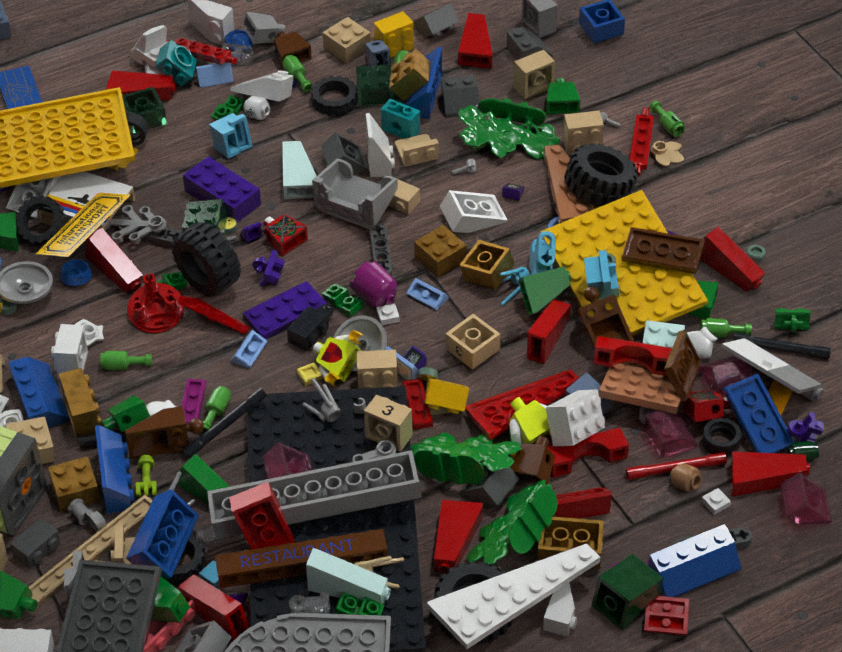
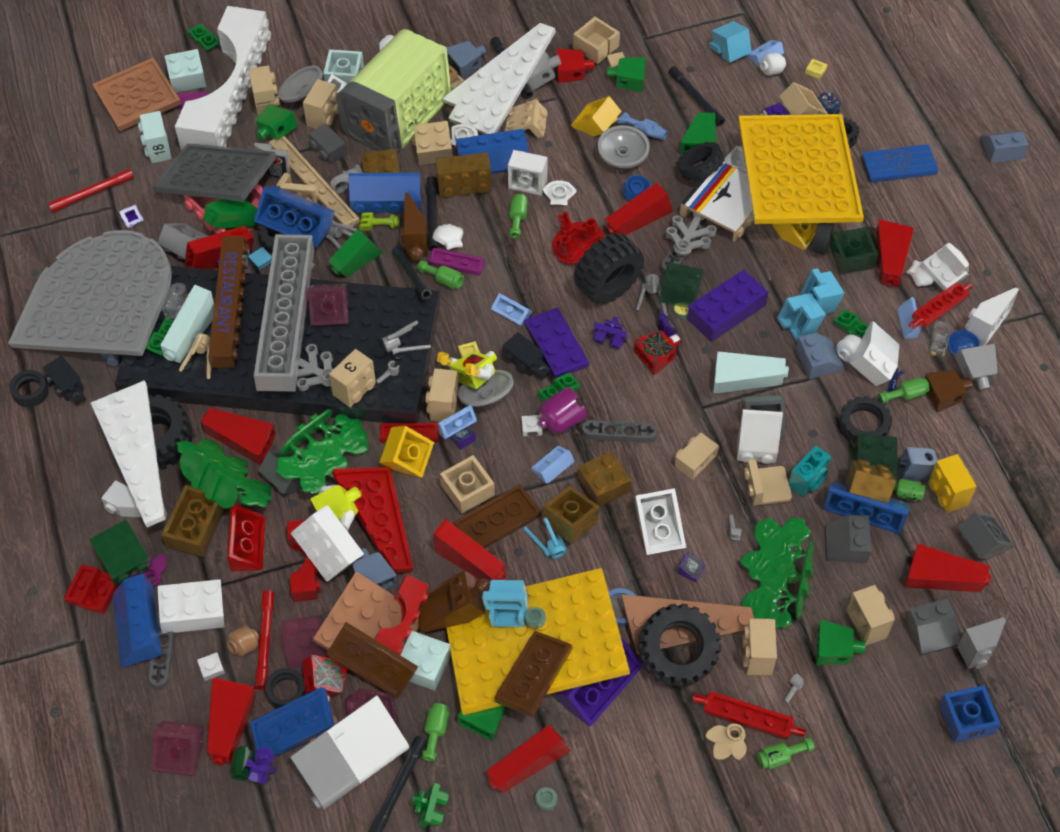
camera: 100 degrees right, 10 degrees up
(83, 224) = (681, 185): yellow sticker -> none
(126, 414) = (445, 208): green torso -> none
(176, 61) = (913, 271): teal brick -> none
(196, 125) = (824, 289): none -> medium azure plate
(212, 313) = (559, 281): red wing -> none
(261, 517) = (263, 259): red slope -> none
(270, 129) = (818, 355): none -> sand blue slope
(346, 40) = (954, 438): tan brick -> none
(352, 197) = (695, 407): light grey windscreen -> none
(426, 372) = (438, 443): sand green tile -> none
(511, 328) = (499, 517): none -> reddish brown tile
(534, 461) = (290, 504): reddish brown torso -> none
(543, 287) = (521, 556): green slope -> none
(544, 255) = (560, 563): medium azure piece -> none
(663, 519) = (190, 606): none -> white brick
(702, 342) = (418, 699): white animal -> none

